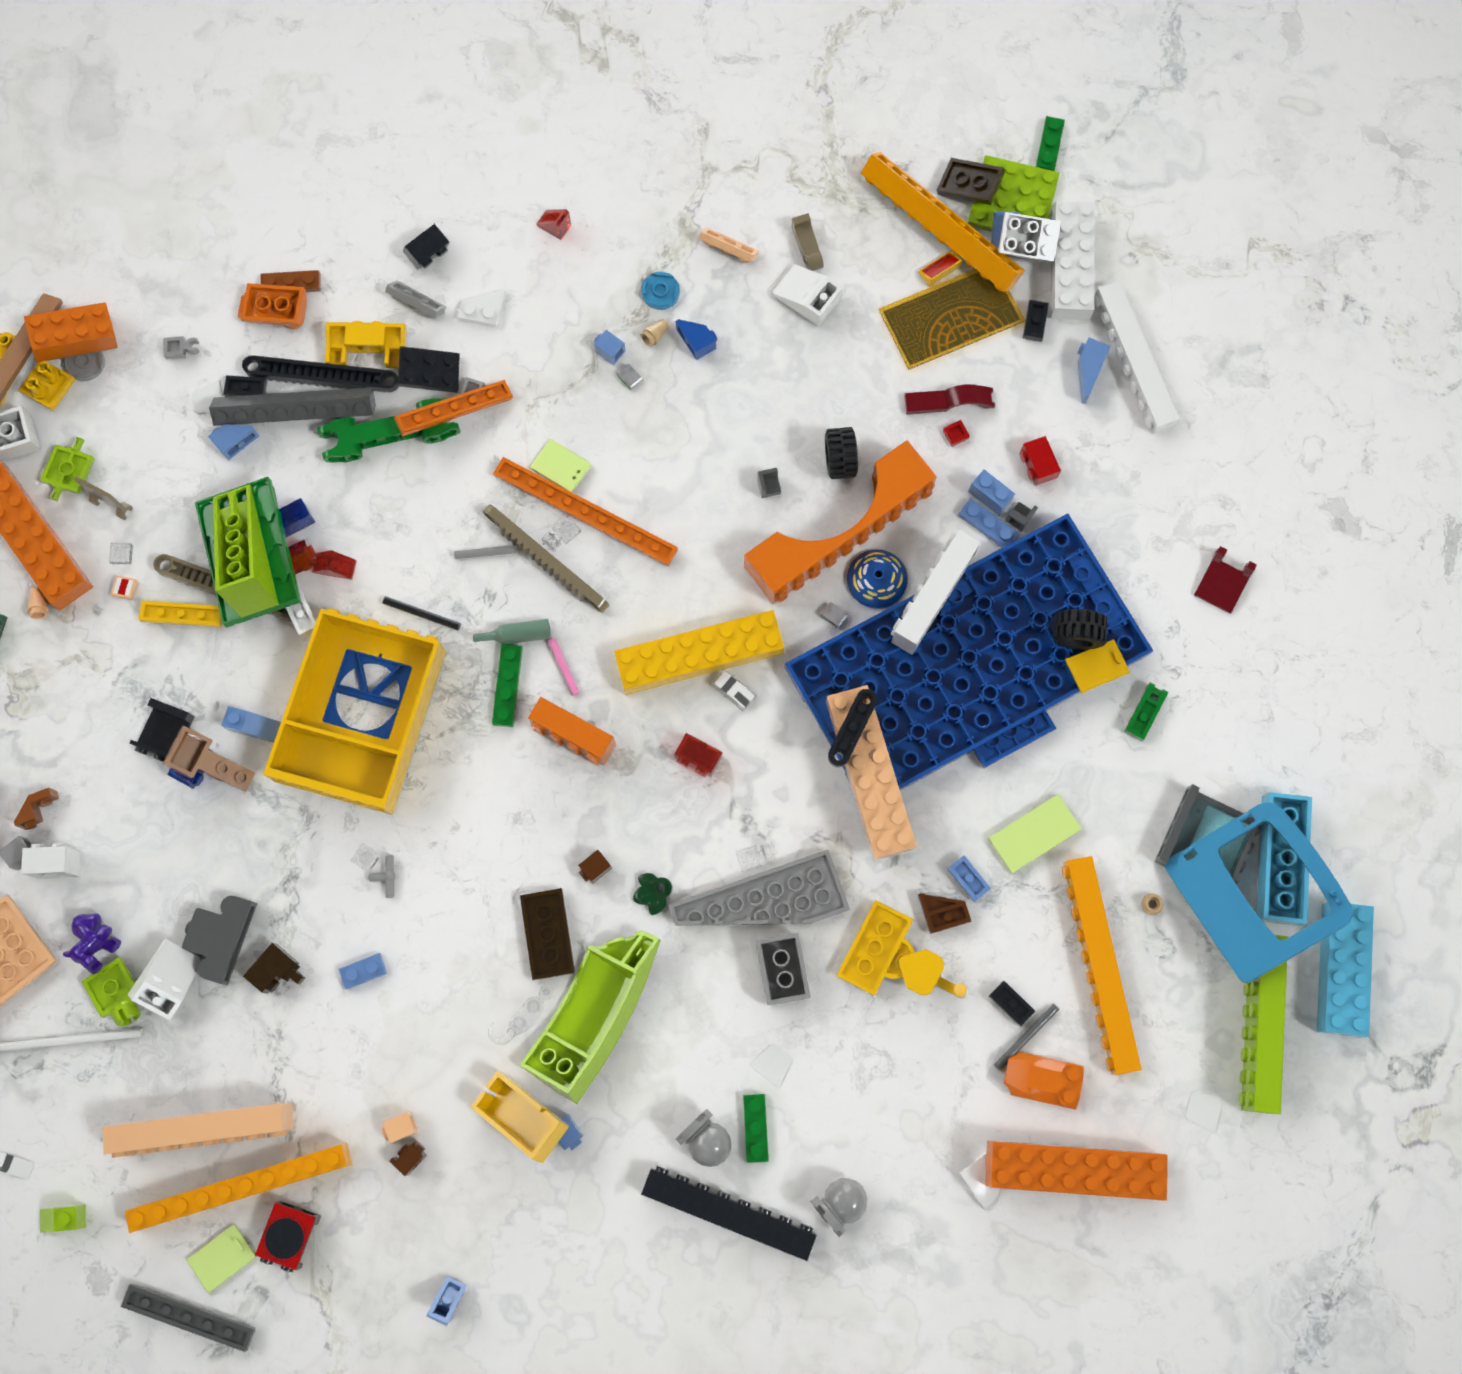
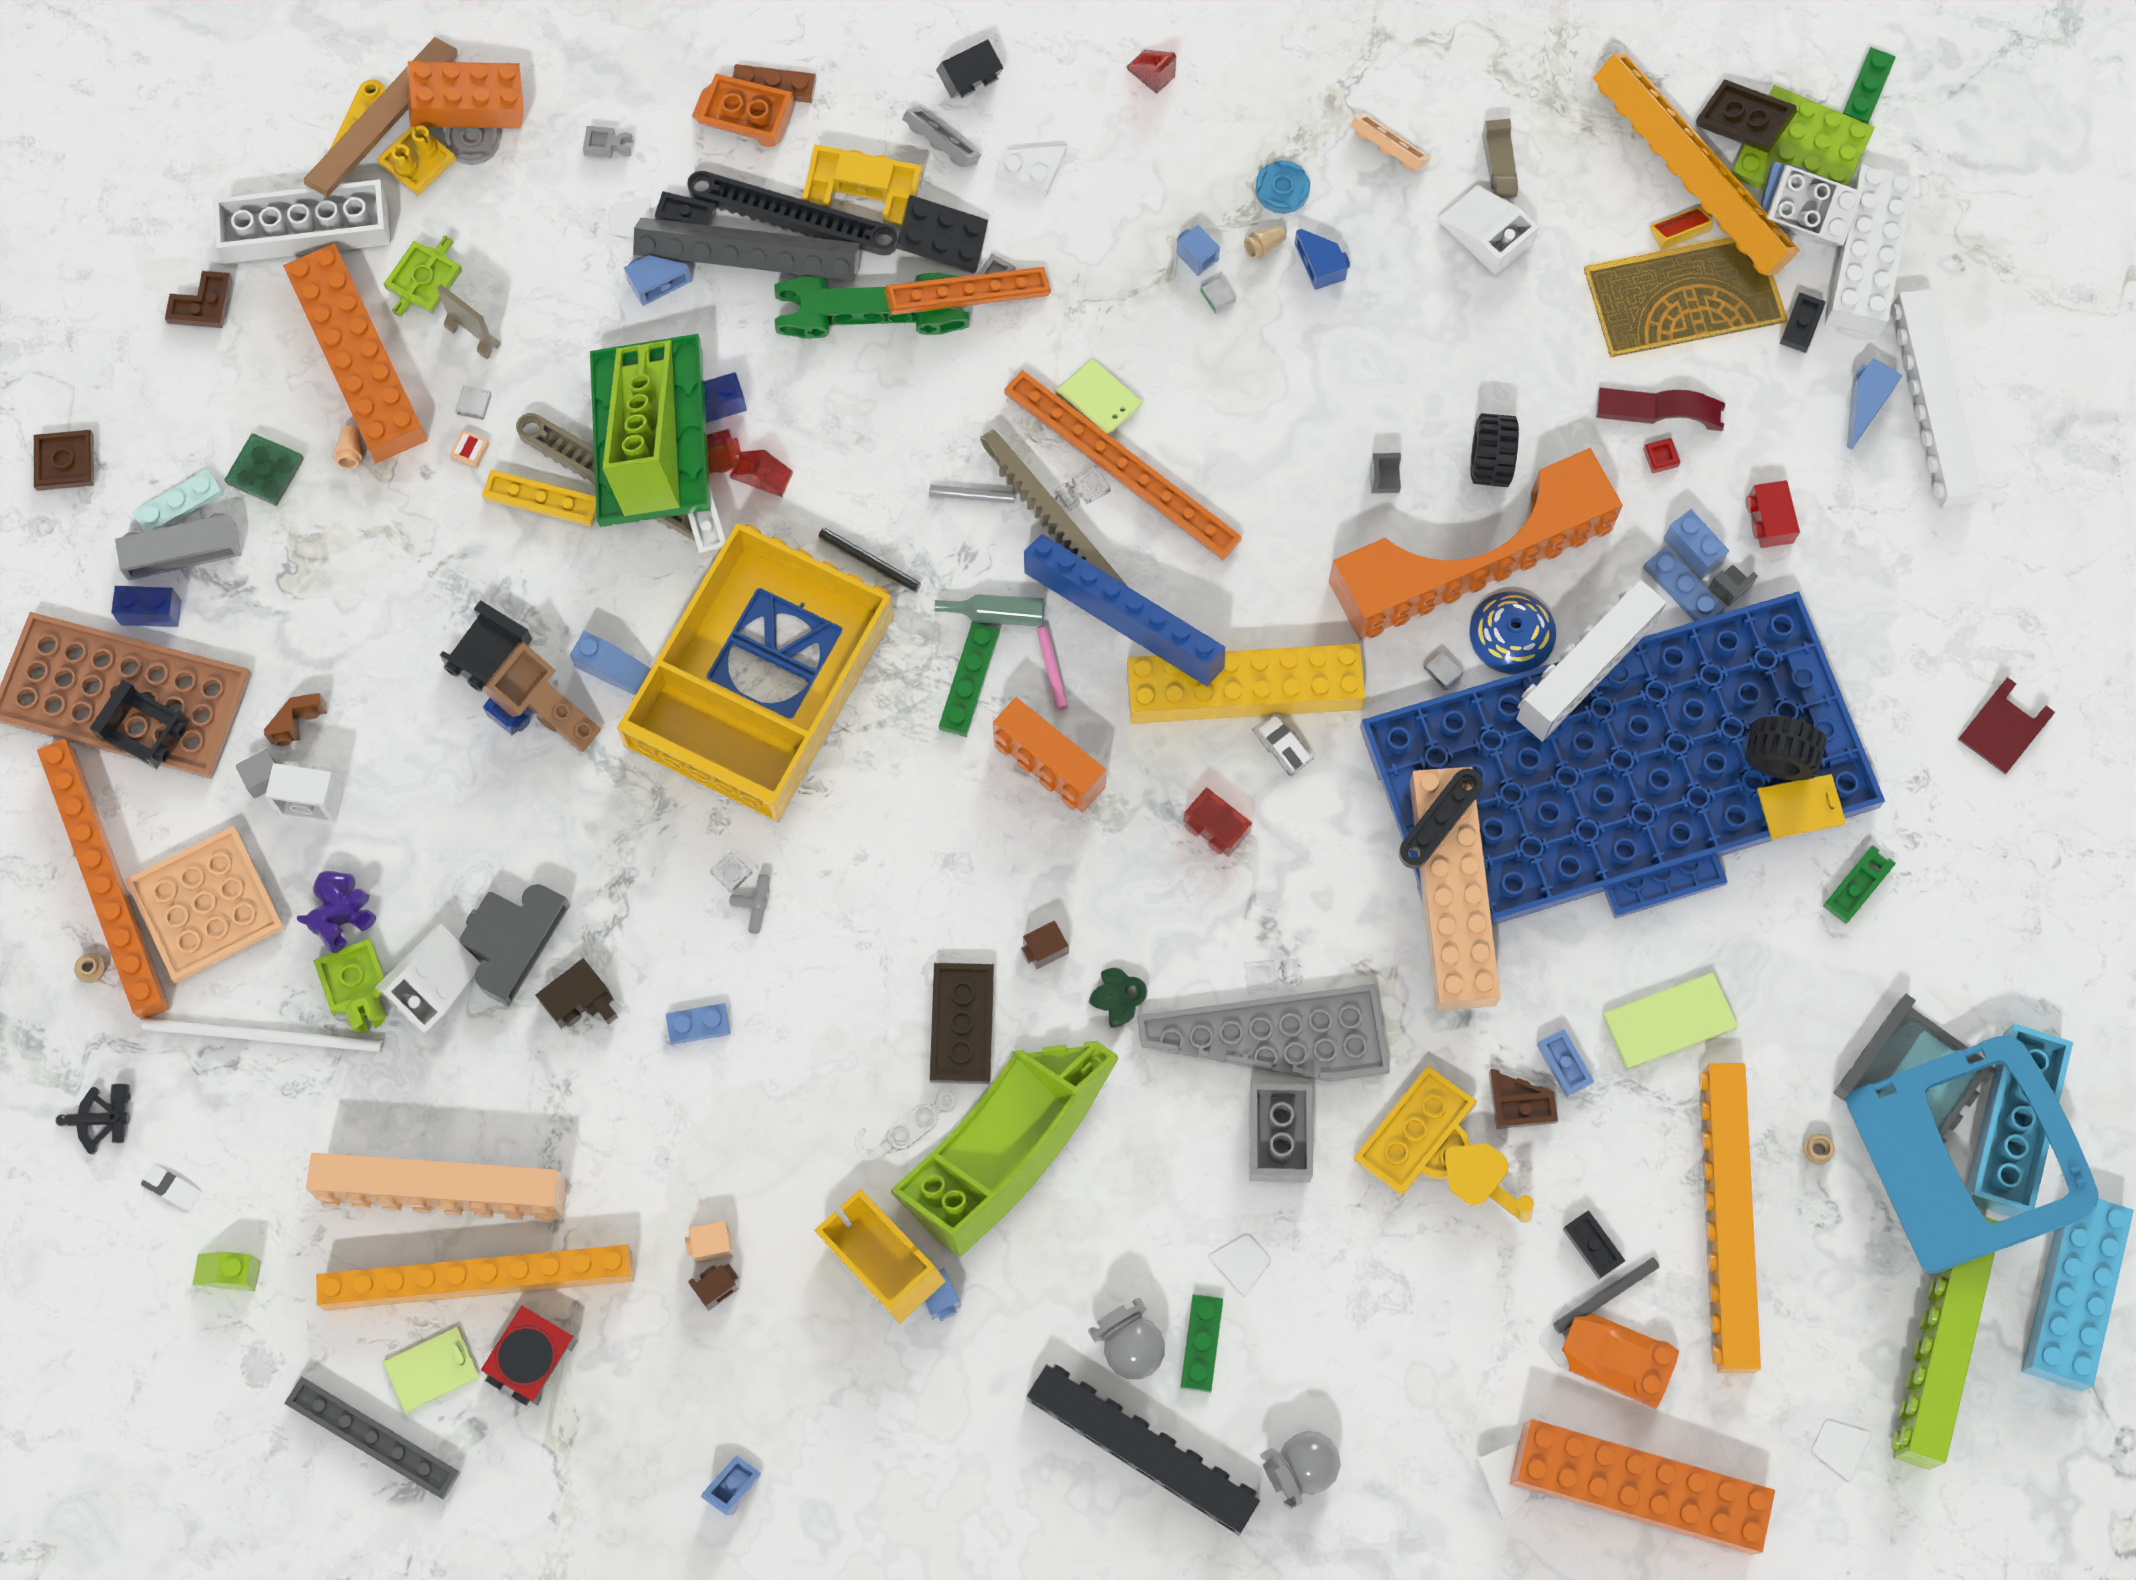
camera: 10 degrees right, 5 degrees down
(605, 617) = (1124, 610): none -> blue brick

